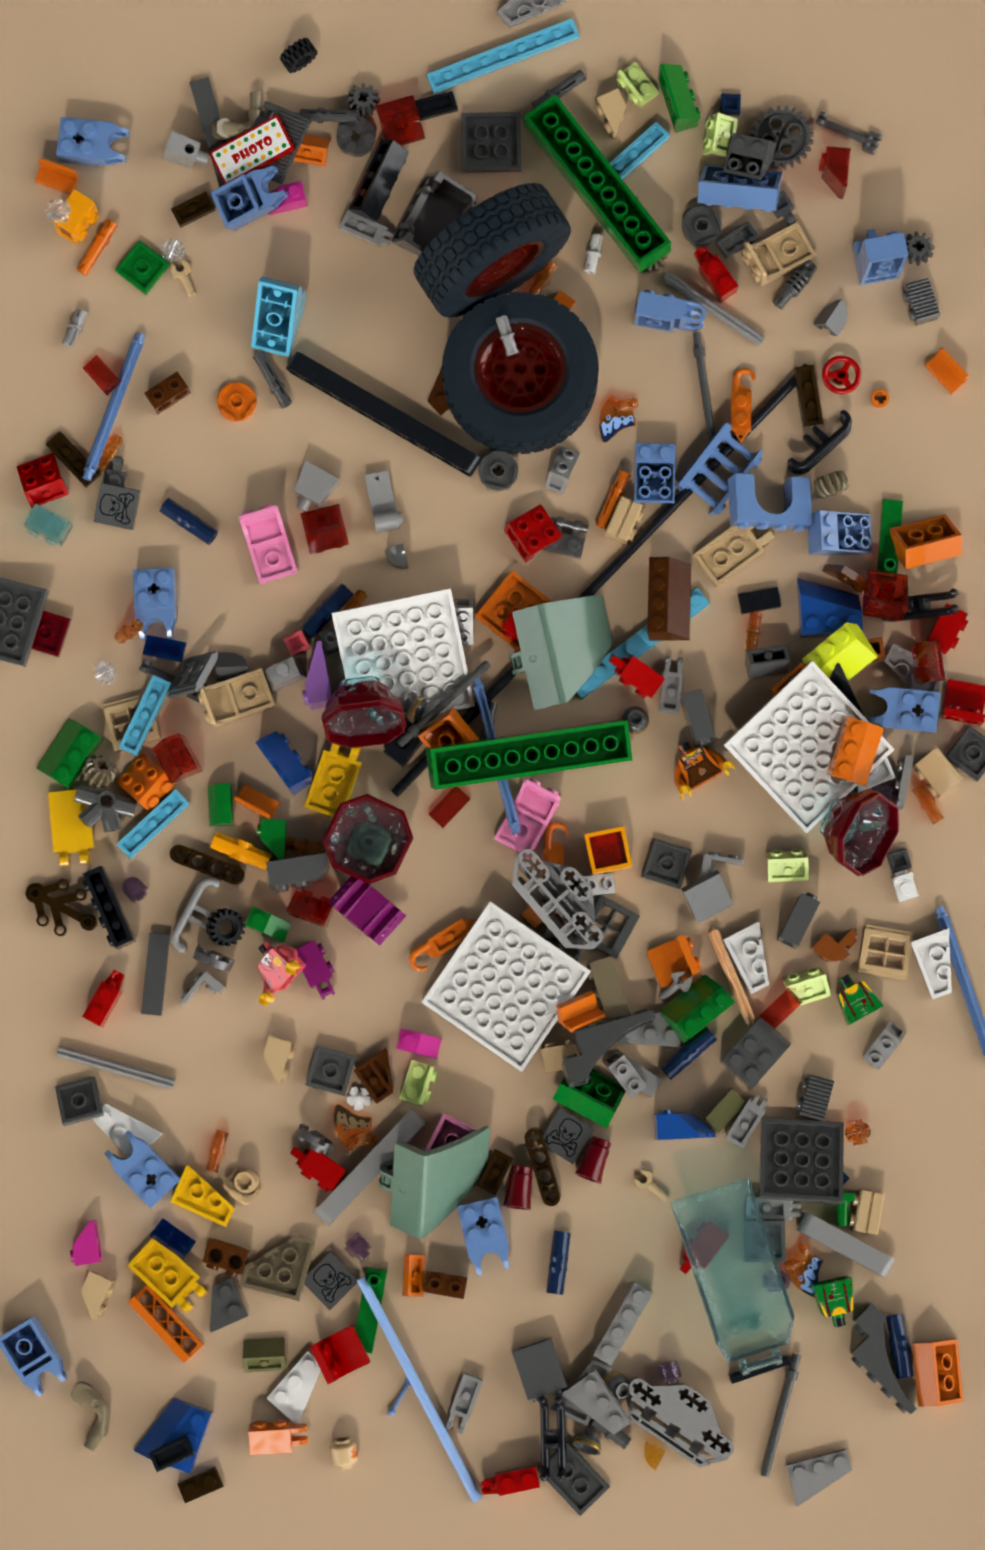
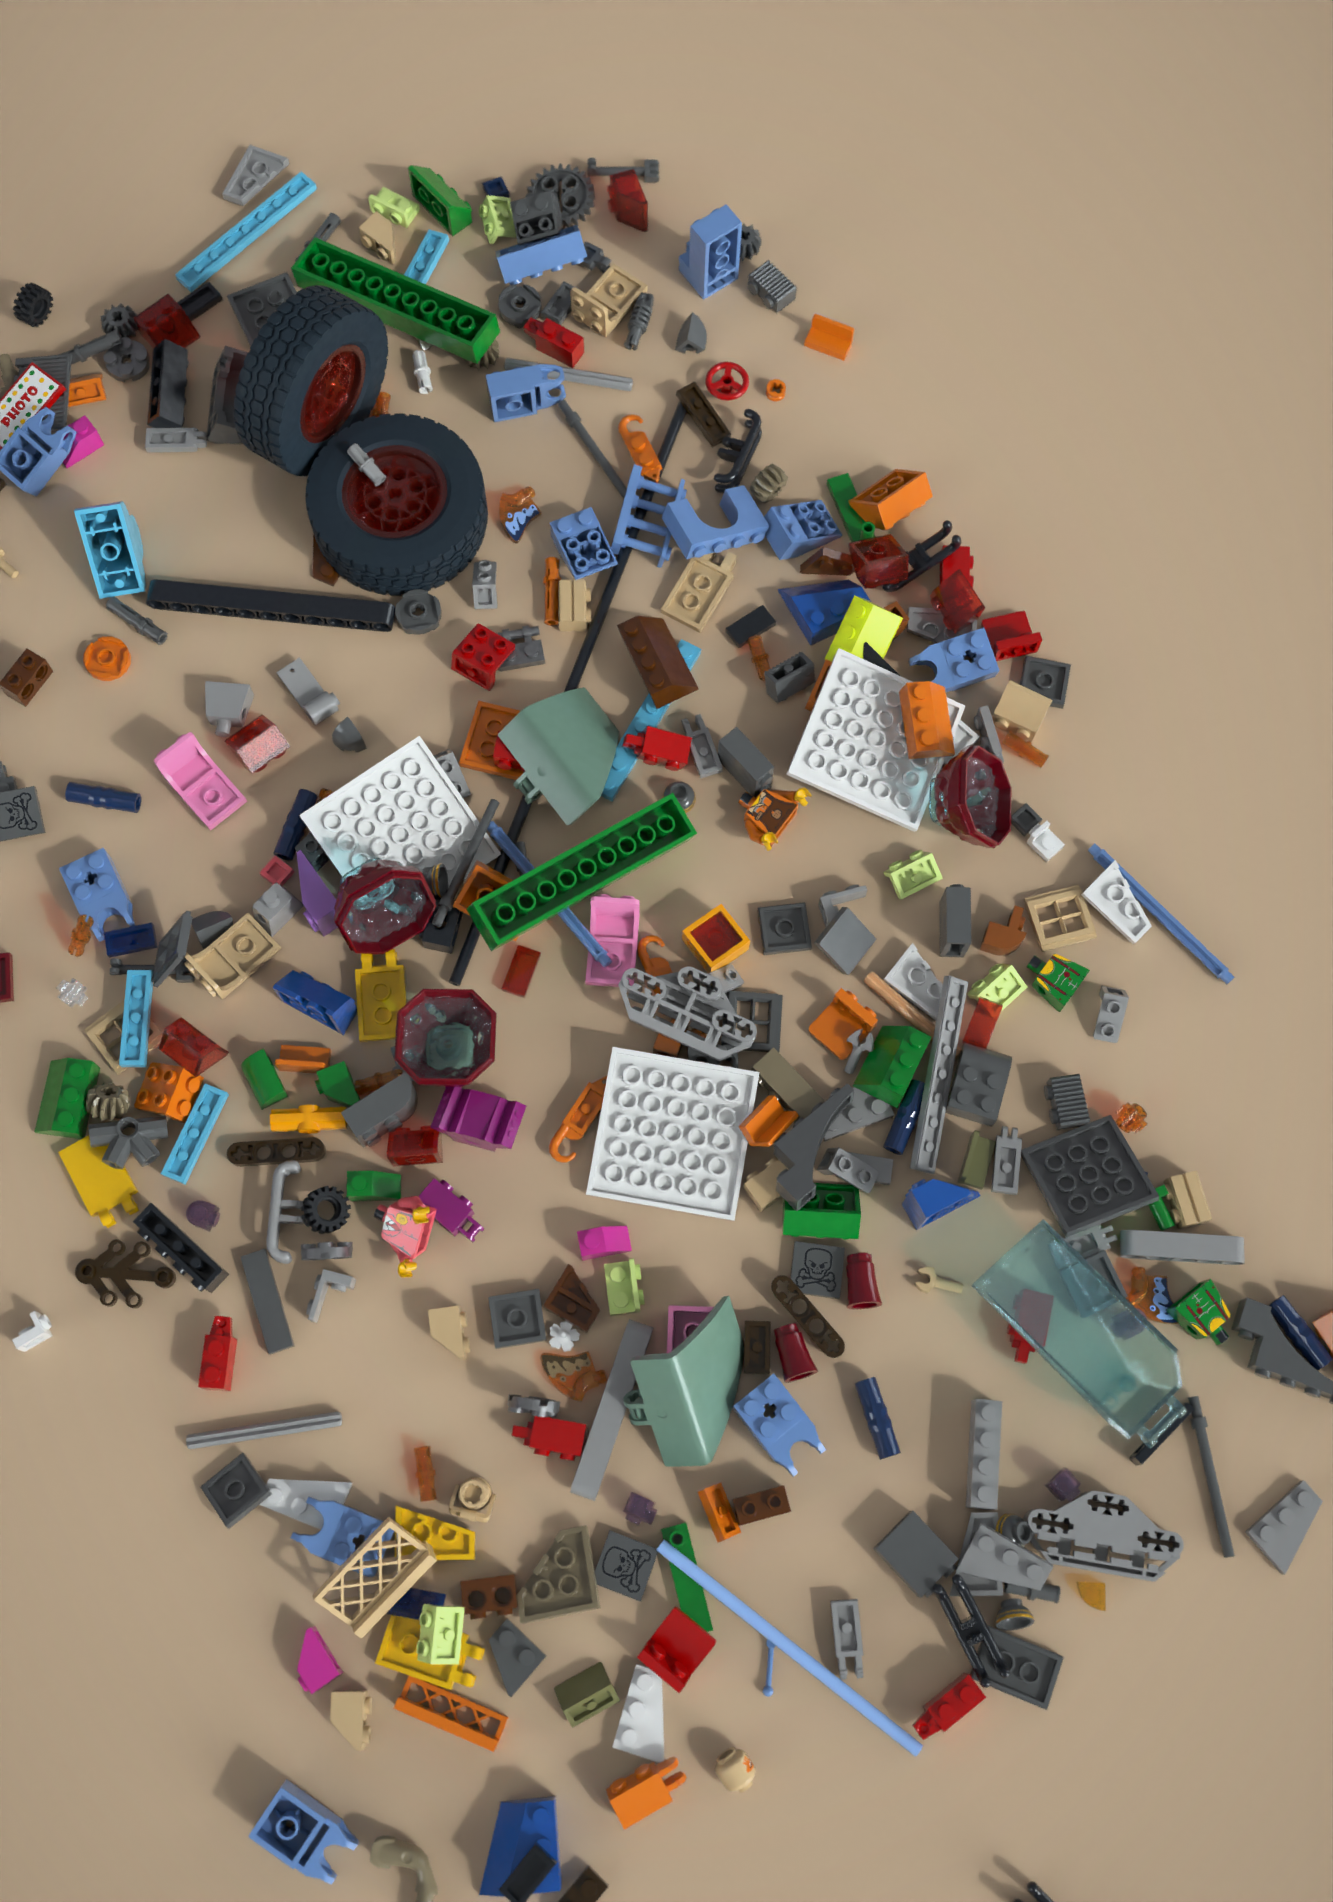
camera: 30 degrees left, 10 degrees down
(159, 1219) = (394, 1584): none -> tan fence
(180, 1267) = (440, 1634): none -> yellowish green bracket
(727, 1033) = (939, 1075): none -> light grey tile

